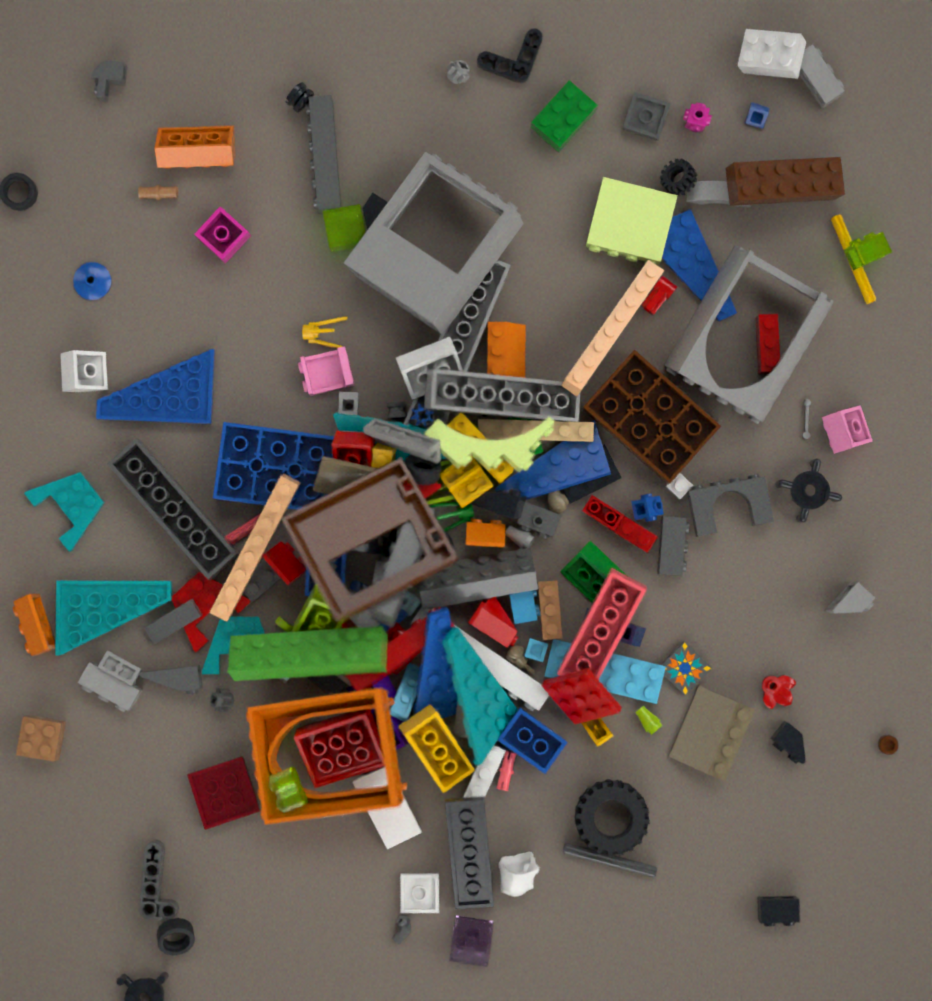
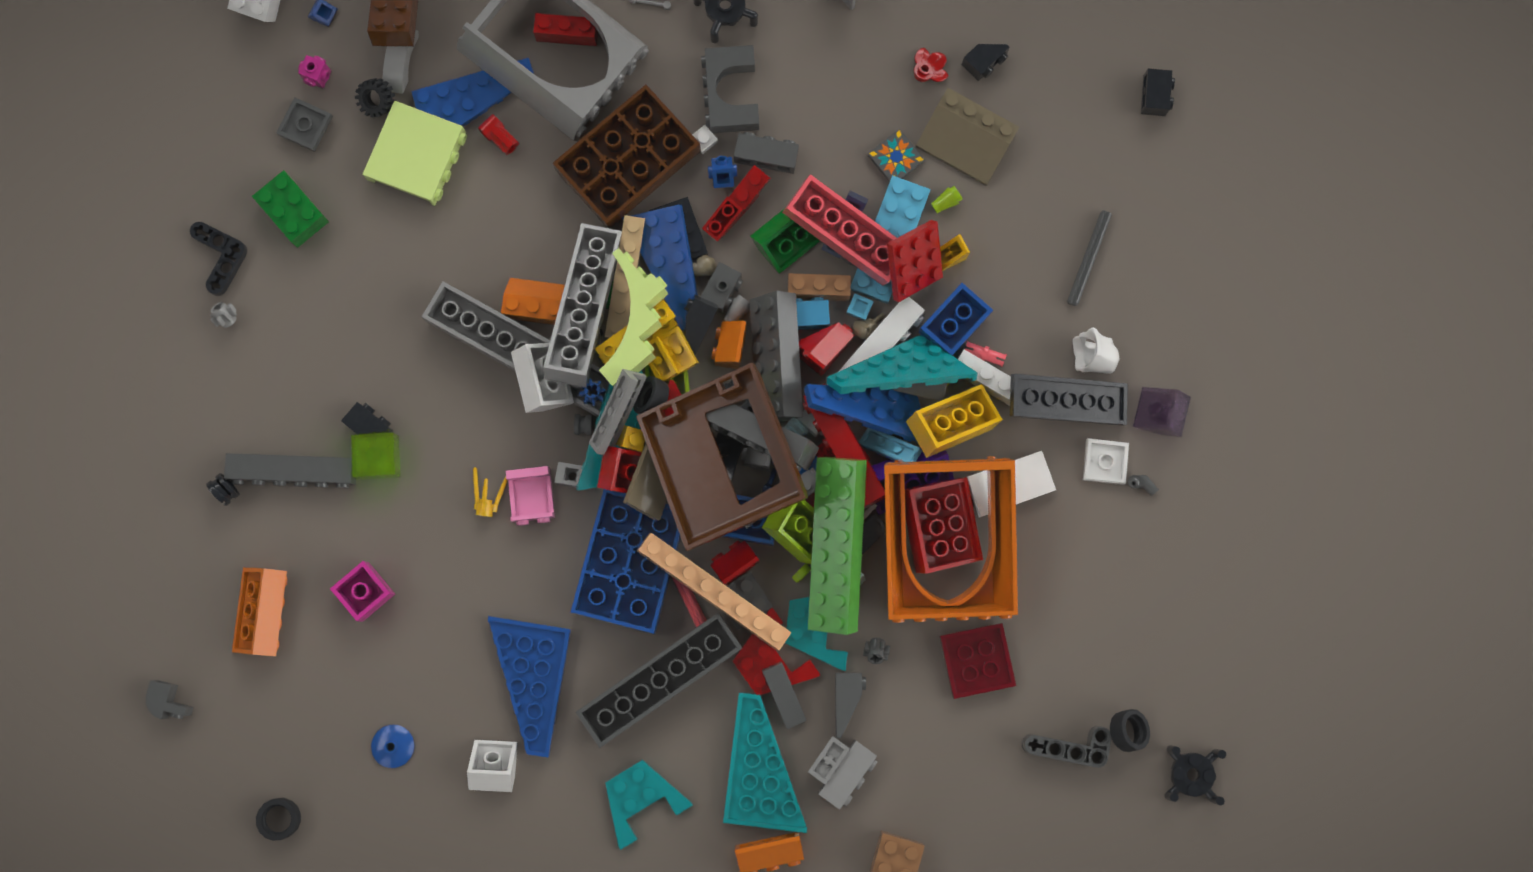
camera: 90 degrees left, 5 degrees down
(158, 192) = (304, 659): medium nougat pin -> none
(288, 789) = (983, 585): clear neon green brick -> none
(412, 276) = (438, 385): light grey panel -> none
(464, 513) = (702, 368): green plant -> none
(596, 796) = (1026, 268): black tyre -> none
(612, 328) = (526, 182): light nougat brick -> none

